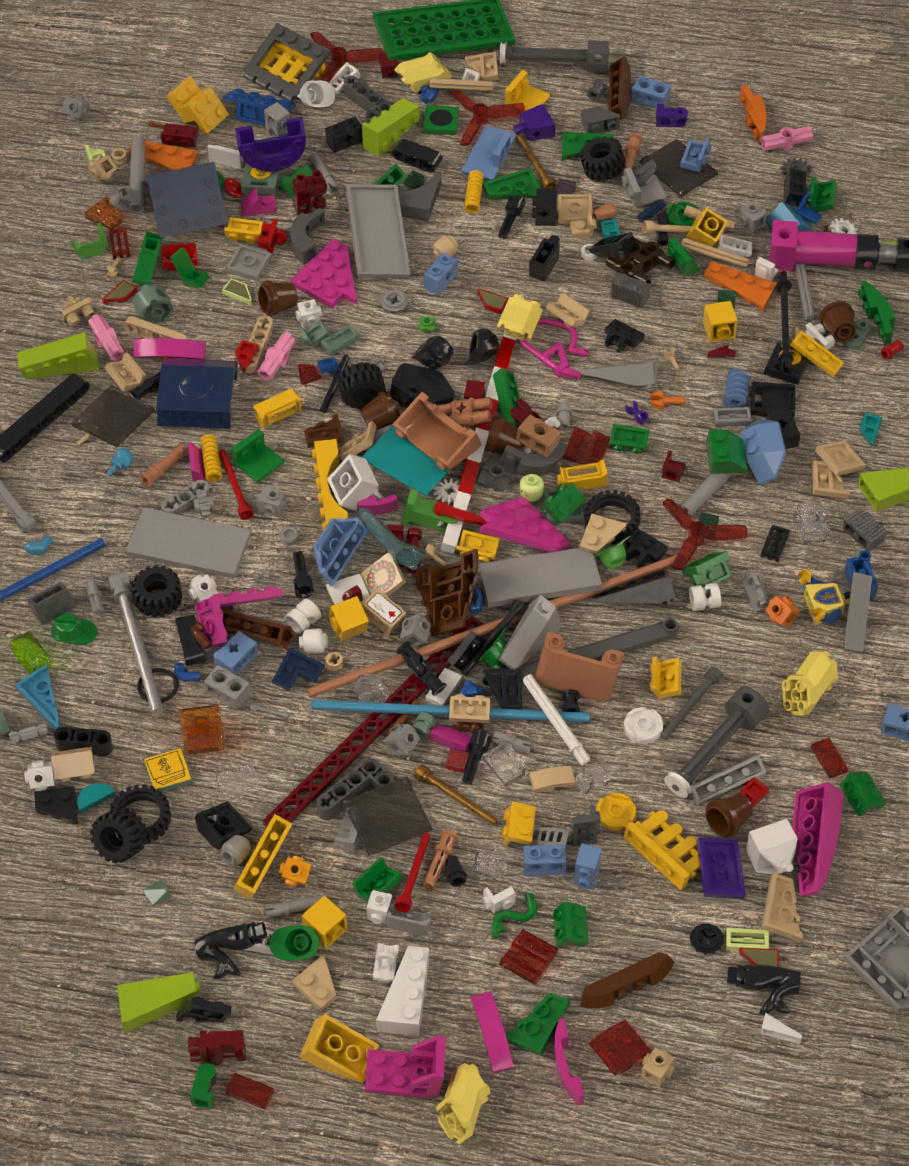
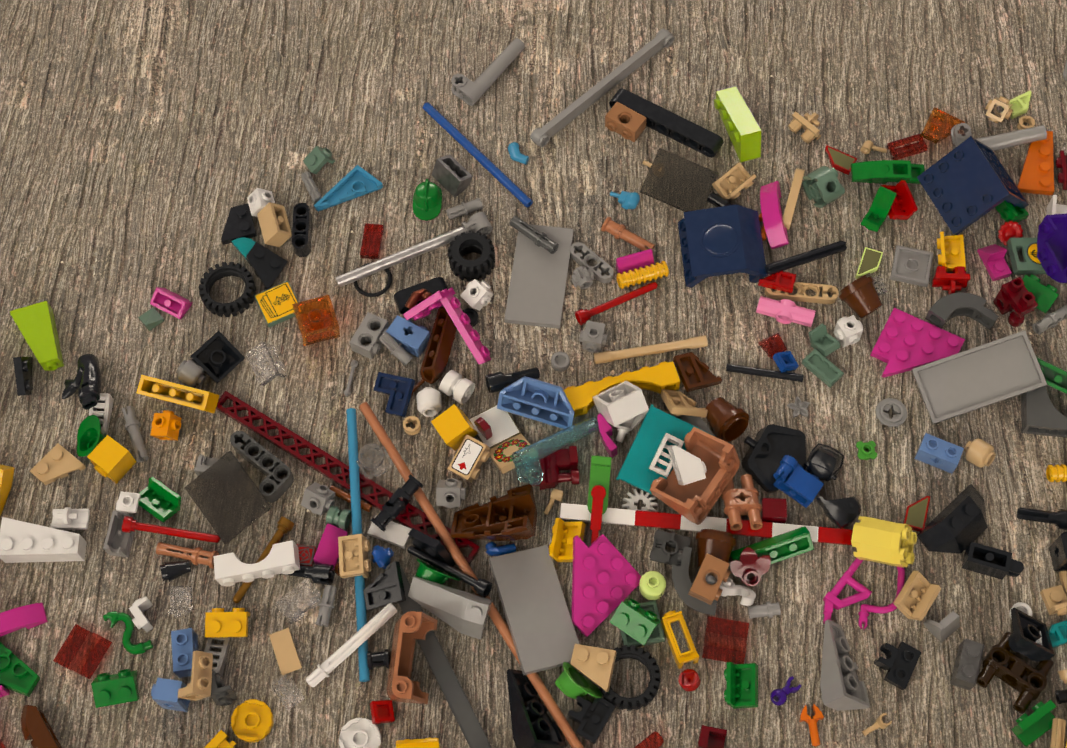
camera: 85 degrees right, 10 degrees up
(28, 449) = (625, 122): none -> medium nougat brick
(30, 652) = (392, 169): clear neon green piece -> none
(94, 248) = (895, 128): bright green helmet -> none
(106, 337) = (777, 157): bright pink piece -> none
(108, 843) = (192, 271): black tyre -> none
(111, 682) = (371, 241): none -> clear red tile
(118, 777) = (266, 264): none -> black wing
(141, 873) = (170, 302): none -> dark pink slope
(152, 531) = (539, 238): none -> dark grey pin
(184, 675) = (384, 298): blue arm -> none
(225, 331) = (805, 257): none -> black axle
(249, 663) = (395, 348): none -> light grey axle
(255, 457) = (649, 314): green bracket -> none
(277, 408) = (716, 322): yellow window -> none
(293, 496) = (690, 343): none -> tan piece
(360, 384) = (753, 392): black tyre -> none
(402, 449) = (667, 437): none -> white slope
(429, 437) = (686, 465): none -> white slope
(451, 372) = (796, 481): none -> blue hinge
(464, 812) = (281, 560): none -> white arch
(504, 274) = (957, 524): none -> black wedge
(587, 819) = (200, 677): none -> tan bracket
(598, 303) = (944, 627): none -> light grey tile
(619, 475) = (689, 680): none -> red tile
(621, 703) = (382, 711): none -> red tile

